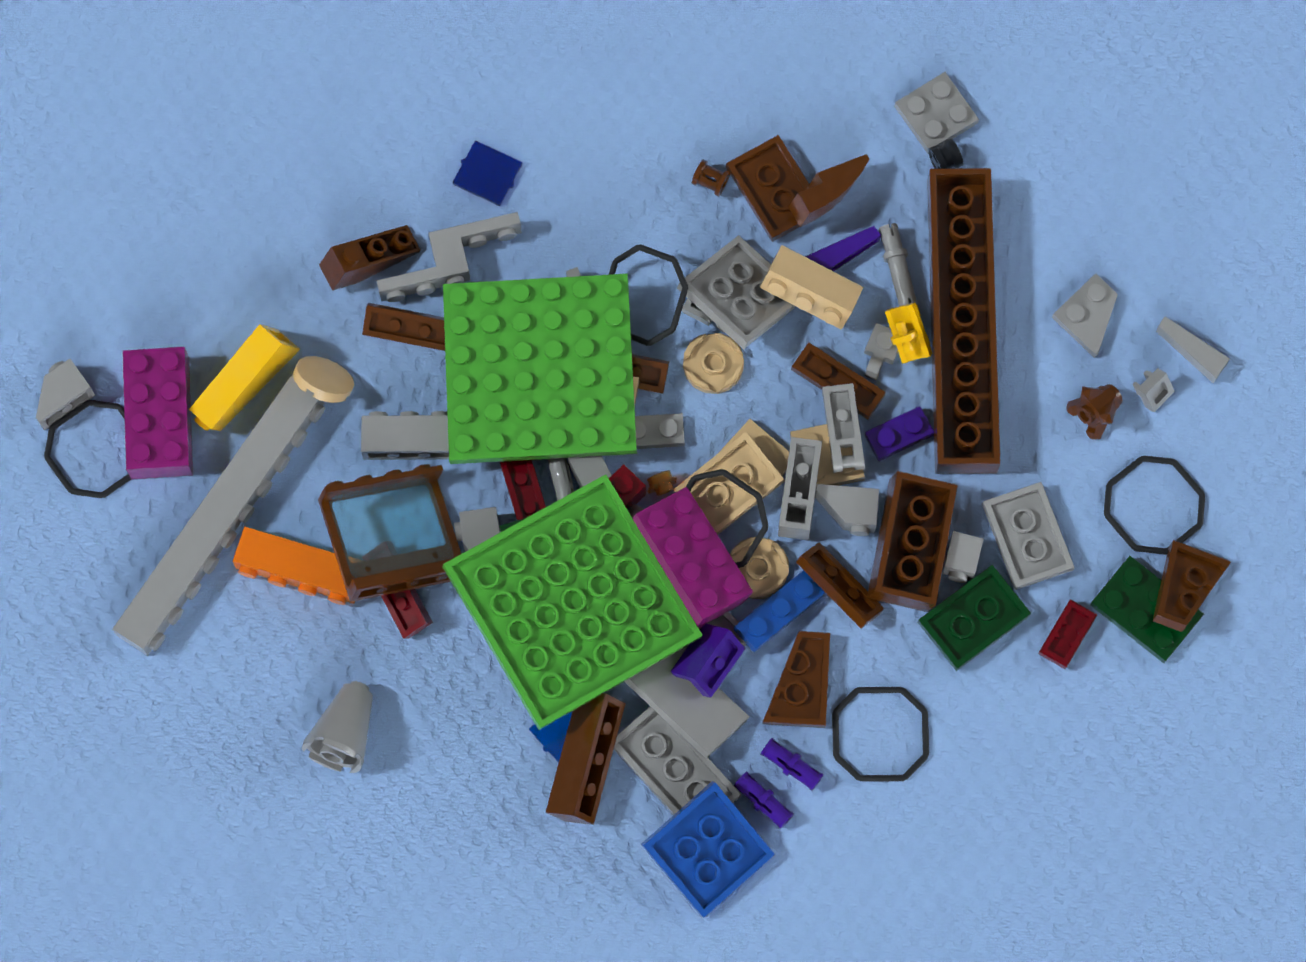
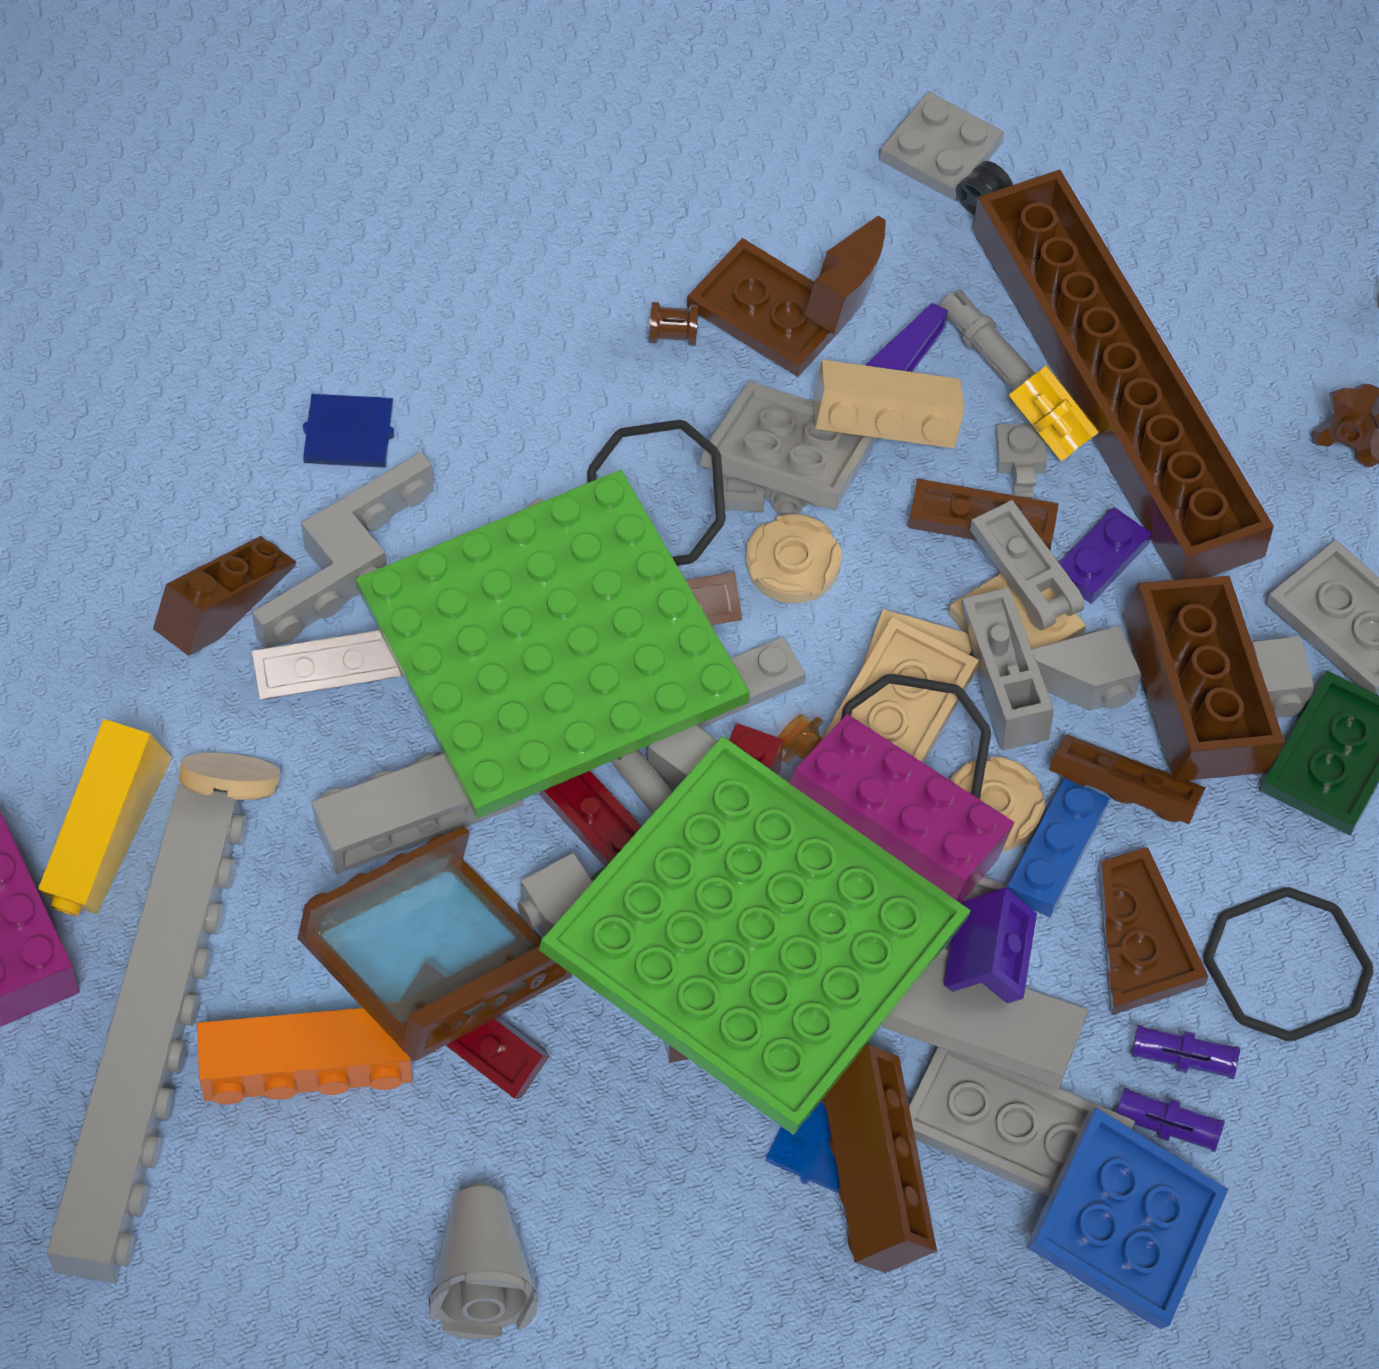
camera: 25 degrees left, 15 degrees down
(1088, 313) = (1278, 316): light grey wing -> none

